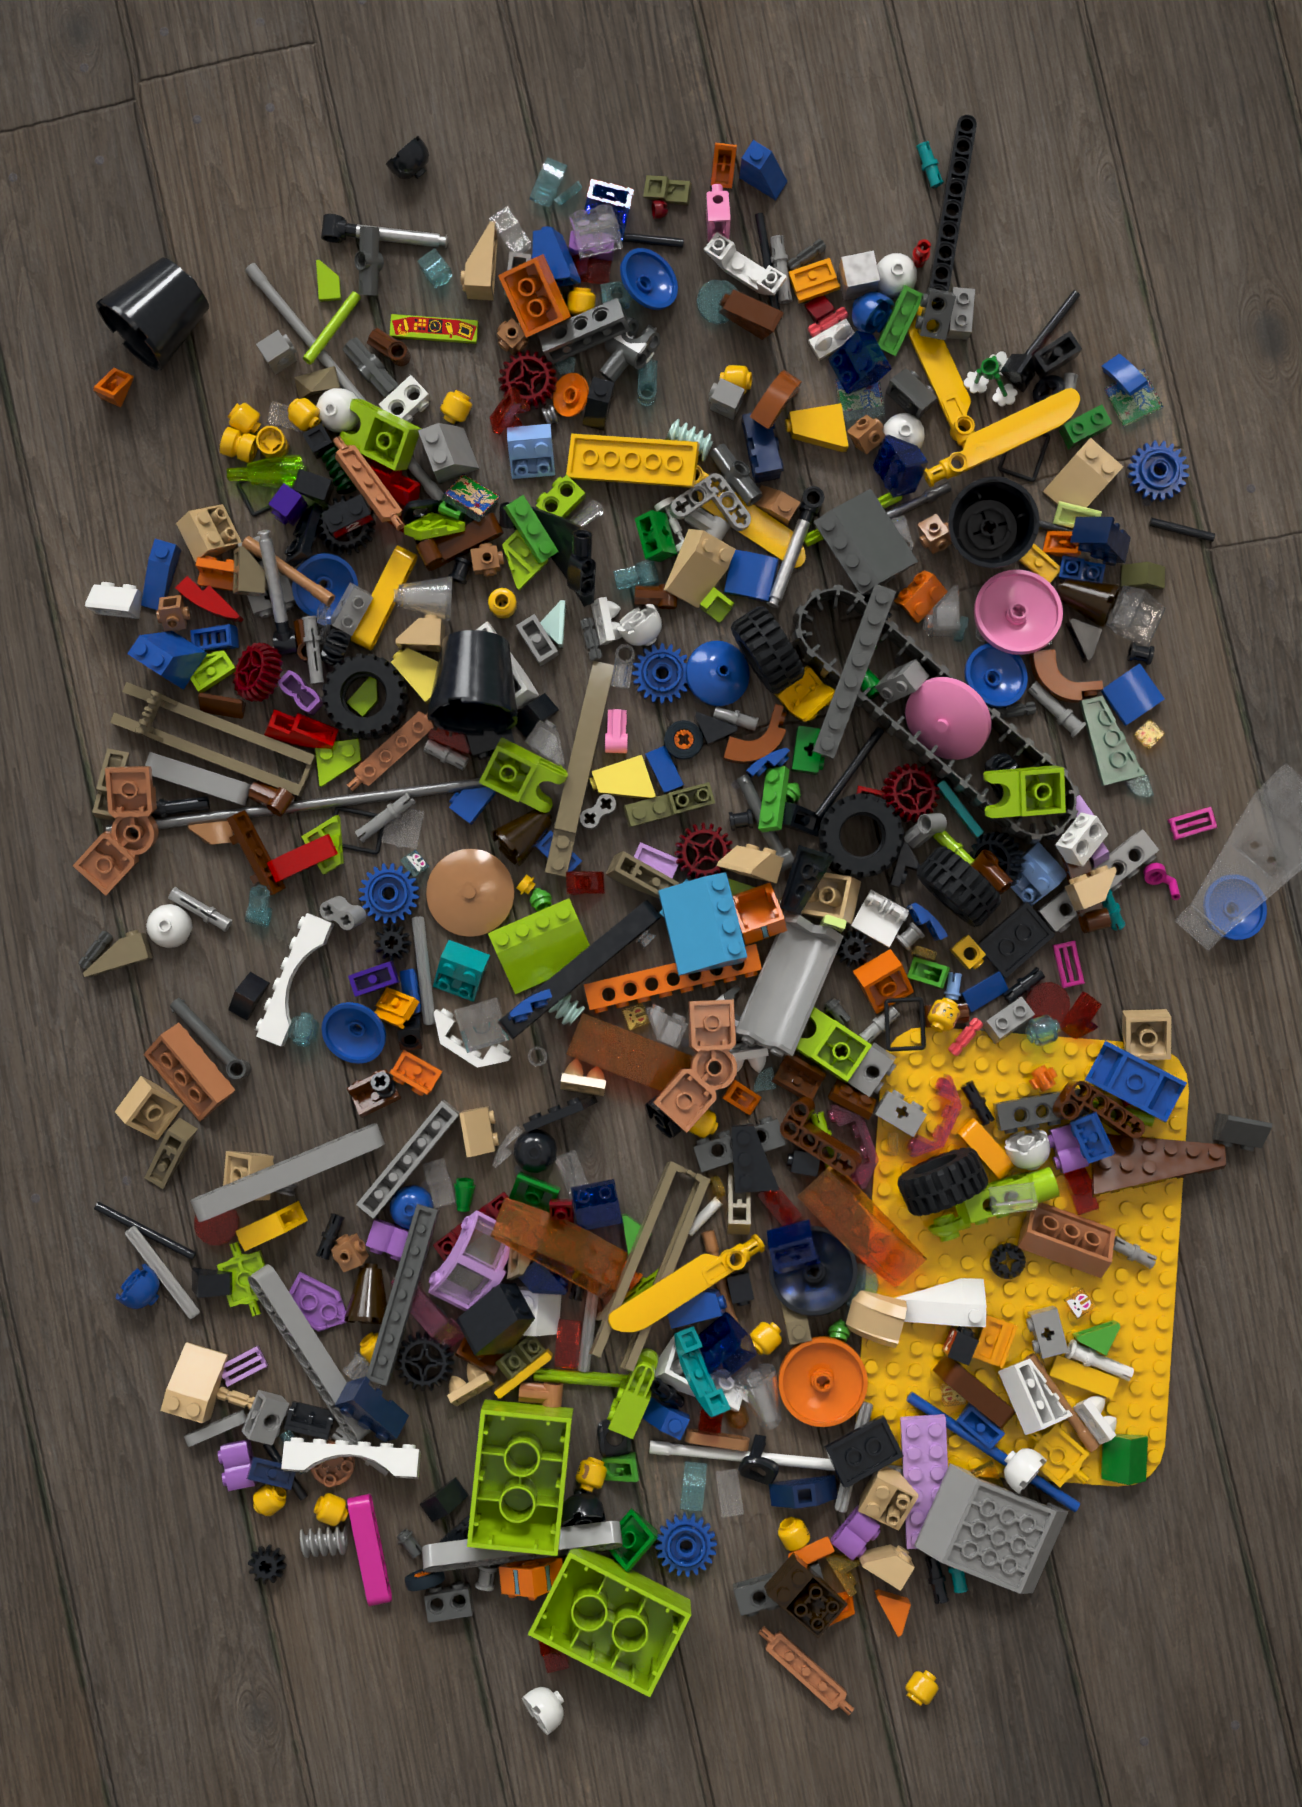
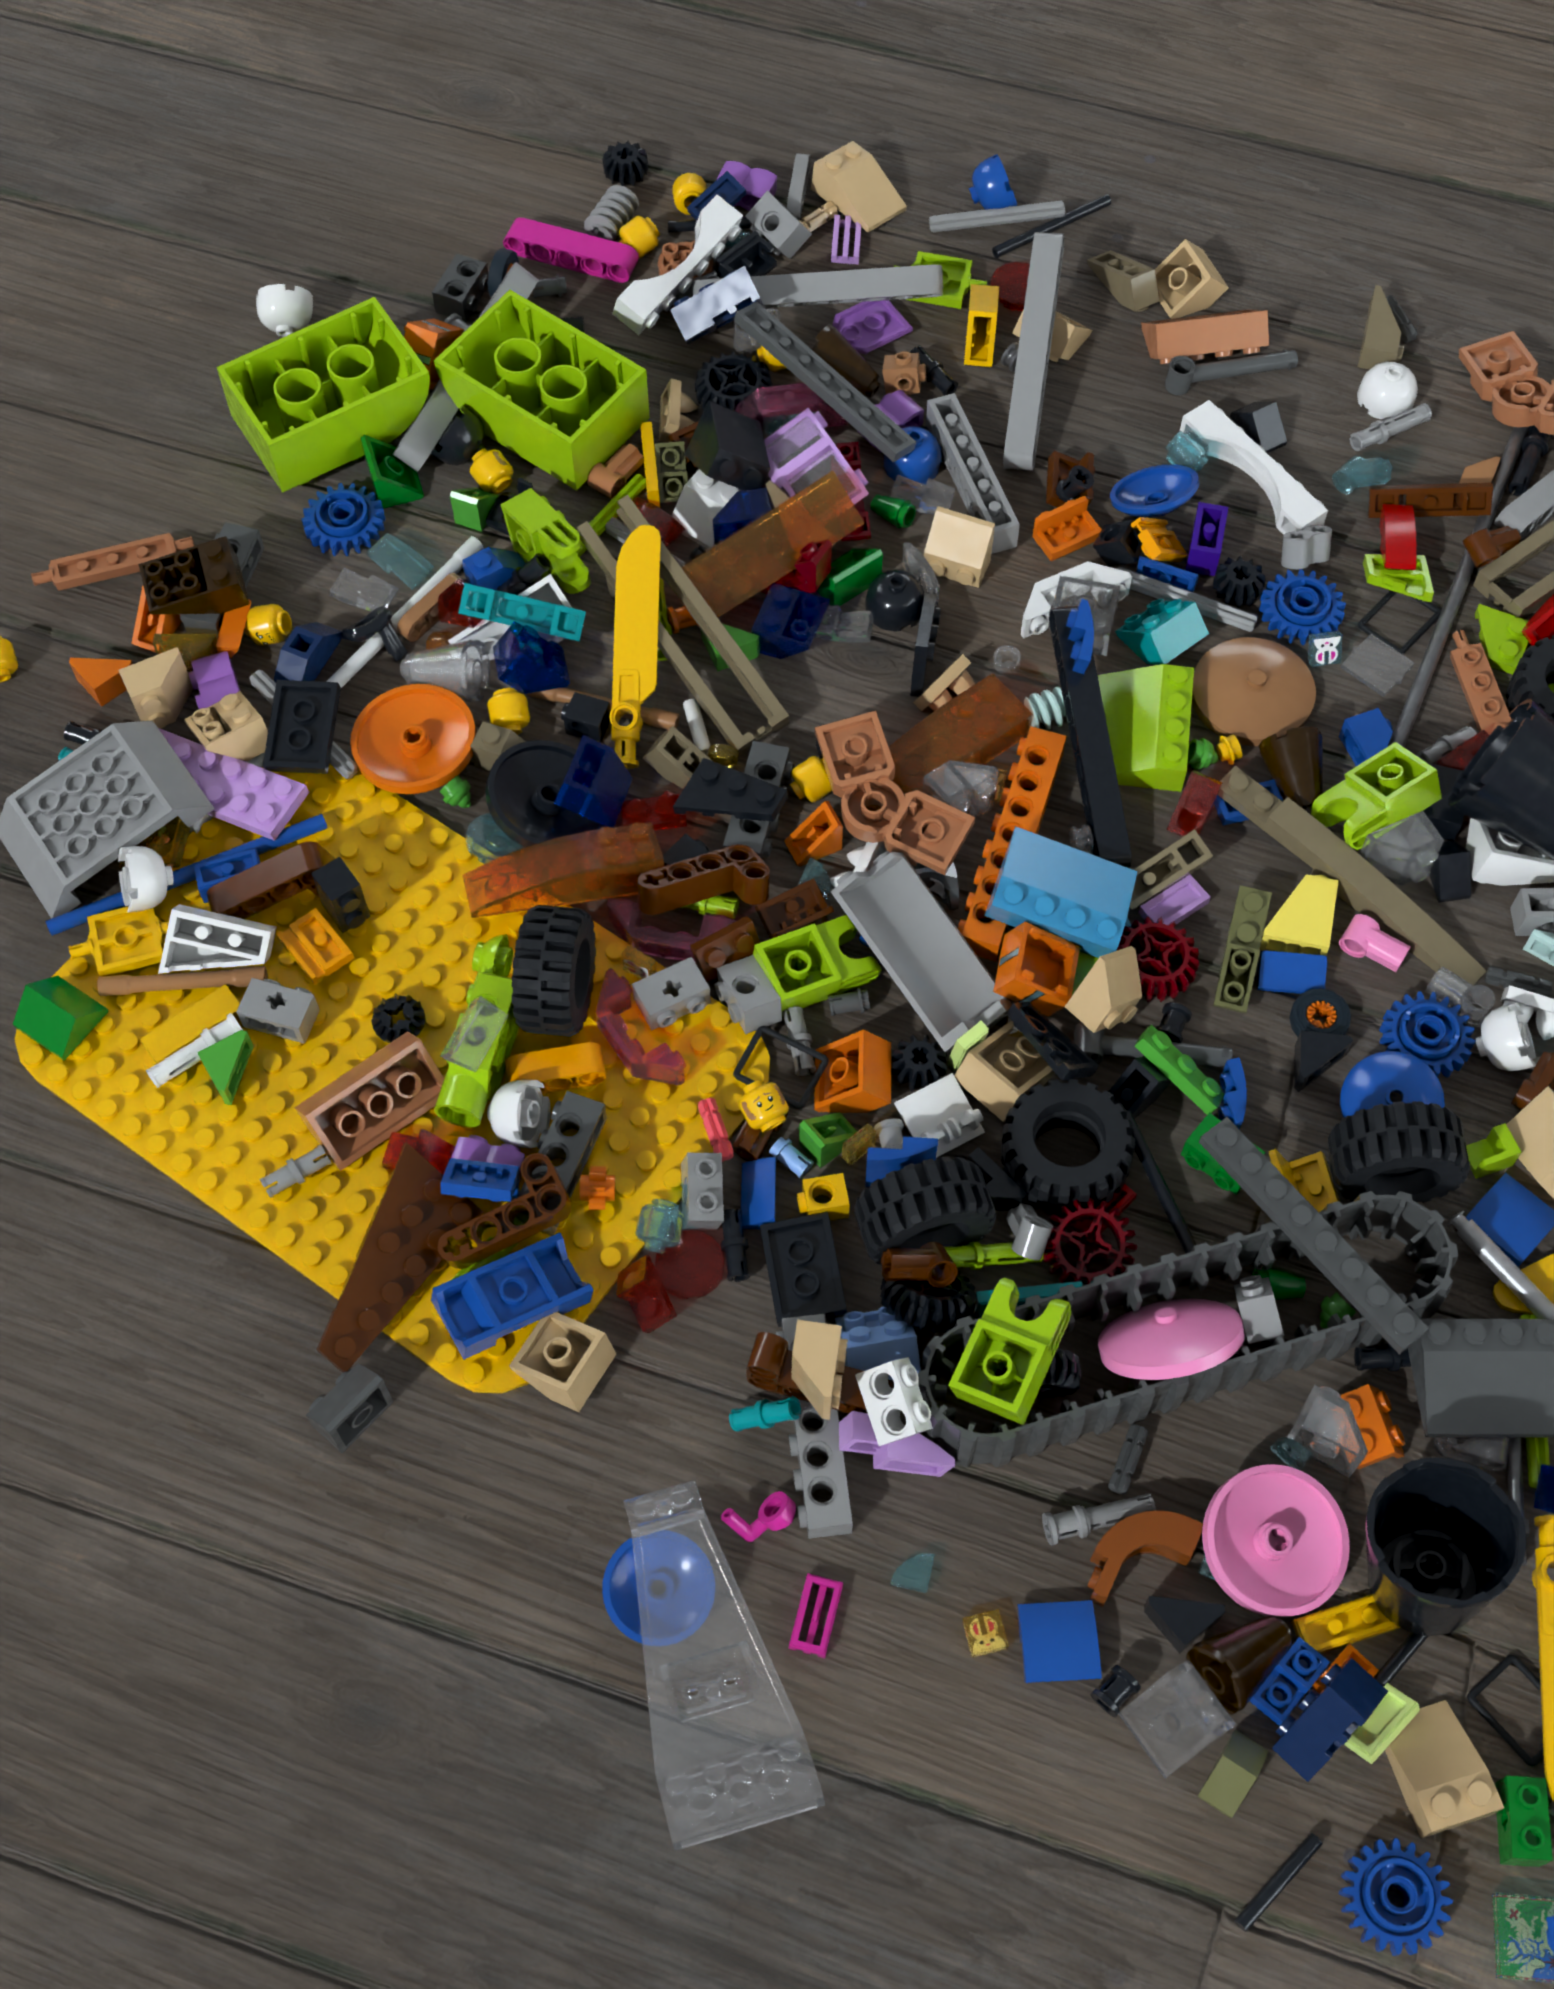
camera: 125 degrees right, 25 degrees down
(211, 1282) = (957, 242): black slope -> none
(391, 812) = (1404, 655): light grey pin -> none
(598, 811) = (1277, 867): light grey axle -> none
(699, 1308) = (593, 663): blue slope -> none
(736, 718) = (1315, 1092): light grey pin -> none
(748, 752) = (1262, 1115): dark orange arch -> none
(793, 793) = (1175, 1105): bright green plate -> none
(877, 1317) = (442, 831): tan slope -> none
(951, 1303) = (395, 921): white wedge -> none
(977, 1103) = (622, 1093): black pin -> none
(1004, 669) = (1221, 1445): blue dish -> none
(1064, 984) = (719, 1335): dark pink tile -> none
(1079, 1303) = (283, 1072): tile -> none
(1090, 1413) = (147, 1009): white tile -> none
(1110, 750) = (998, 1560): sand green wing -> none

